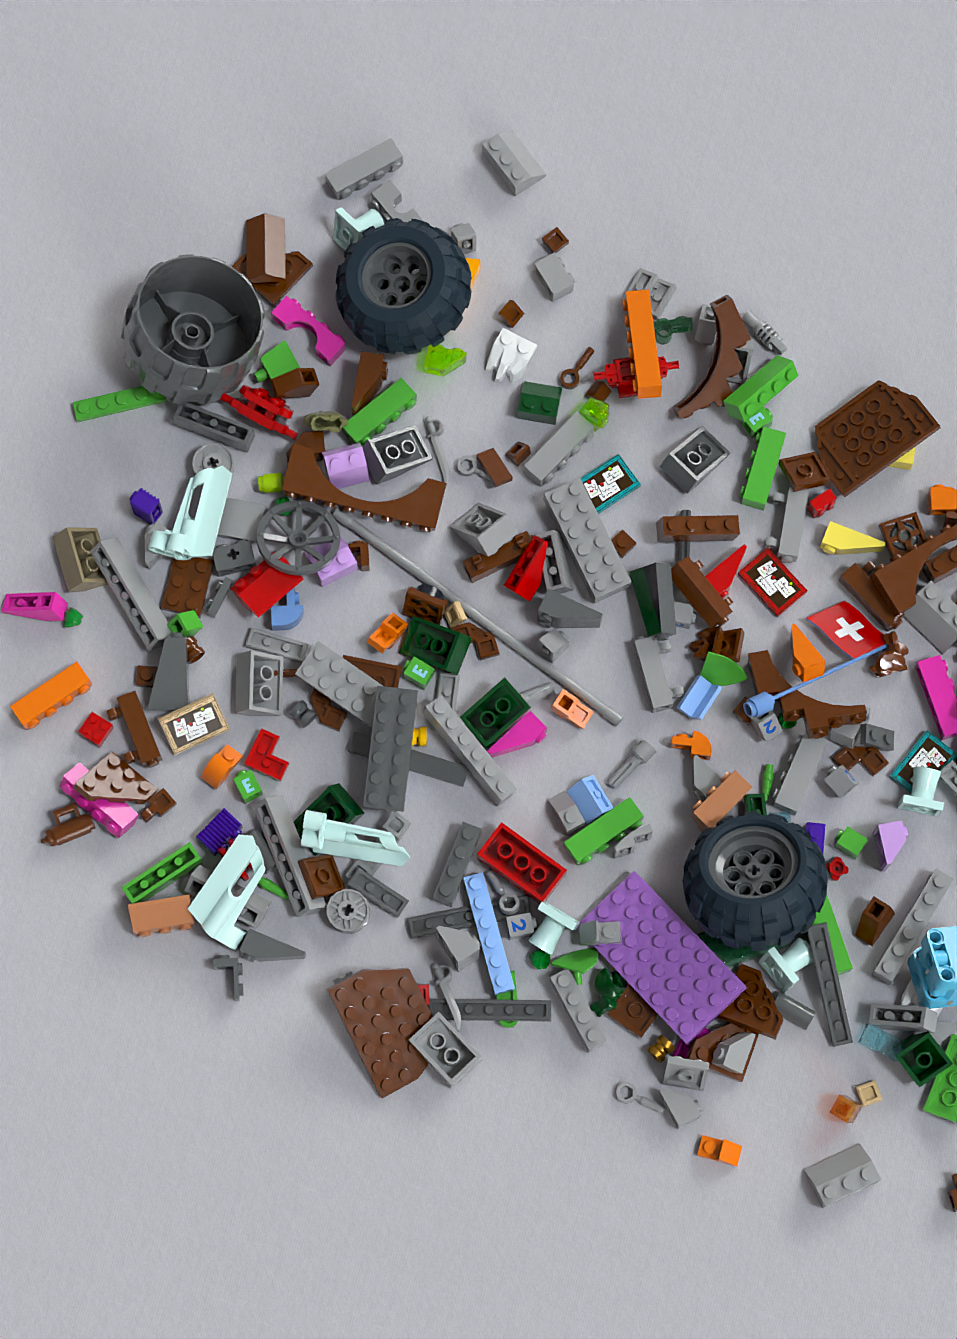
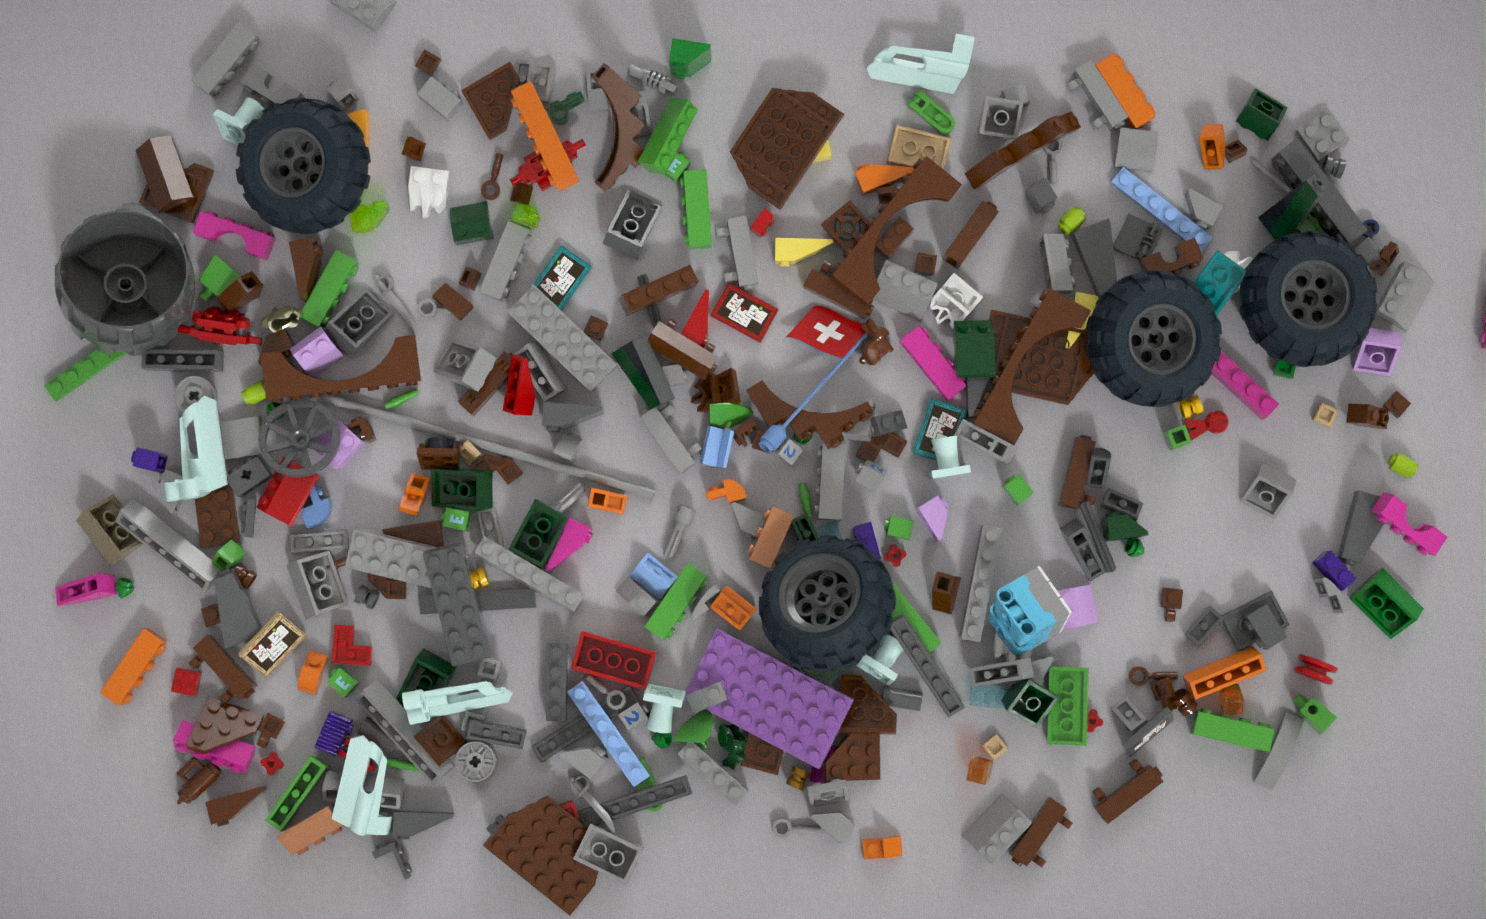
camera: 15 degrees left, 10 degrees up
(90, 863) = (230, 806): none -> reddish brown slope
(152, 842) = (278, 764): none -> red plate
(408, 540) = (402, 398): none -> bright green animal
(603, 296) = (491, 99): none -> reddish brown plate
(657, 859) = (733, 608): none -> orange plate
(733, 1052) = (863, 759): light grey slope -> none
(734, 691) = (747, 428): none -> reddish brown bracket
(804, 471) = (735, 199): reddish brown tile -> none
(805, 658) = (801, 379): orange slope -> none
(808, 323) = (688, 57): none -> green slope
(881, 1194) = (1037, 833): none -> reddish brown brick

